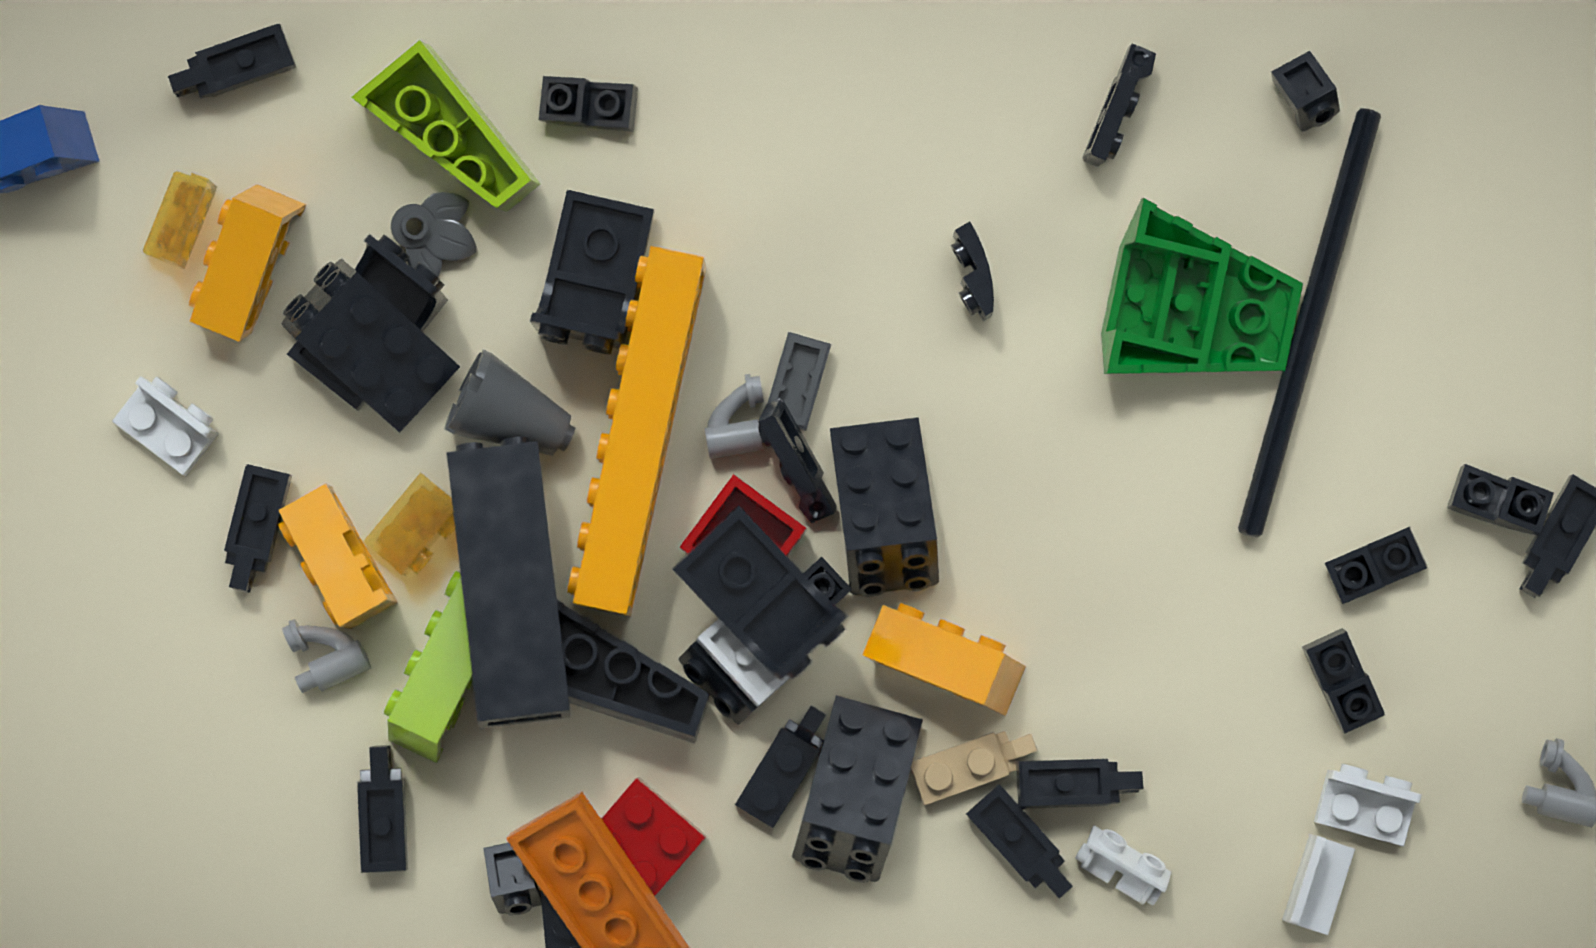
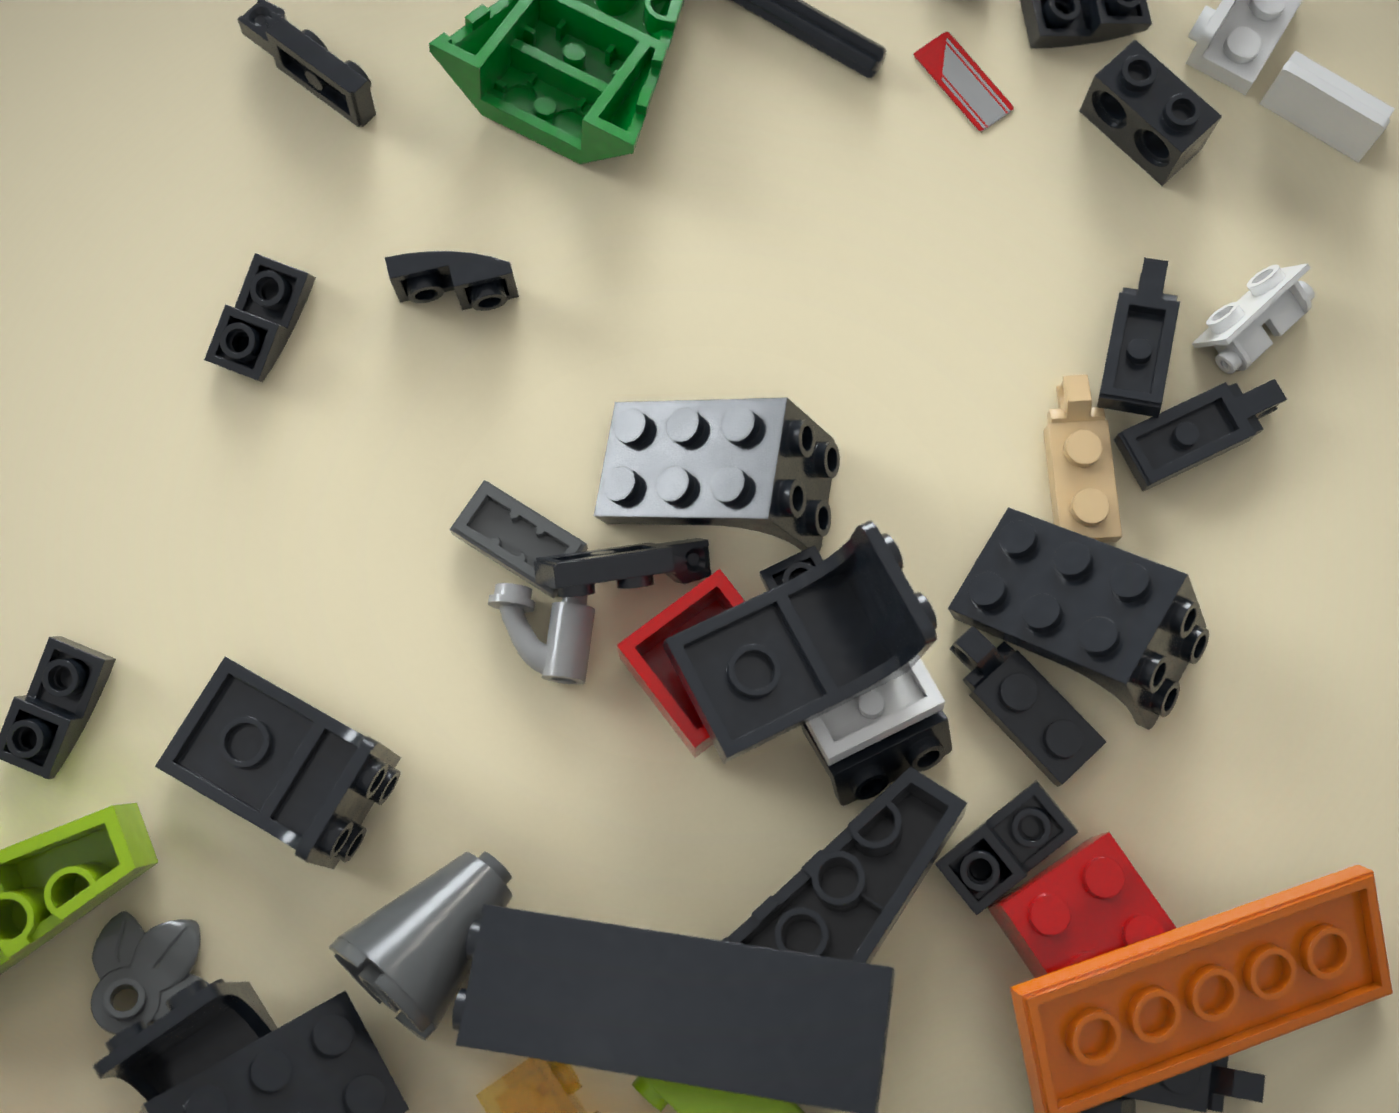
camera: 75 degrees left, 10 degrees down
(639, 431) = (516, 755): light orange brick -> none
(682, 778) = (1006, 847): none -> black slope
(907, 141) = (263, 319): none -> black slope
(945, 657) = (936, 452): light orange wedge -> none
(1259, 602) = (963, 81): none -> sticker
(1262, 747) = (1149, 112): none -> black brick

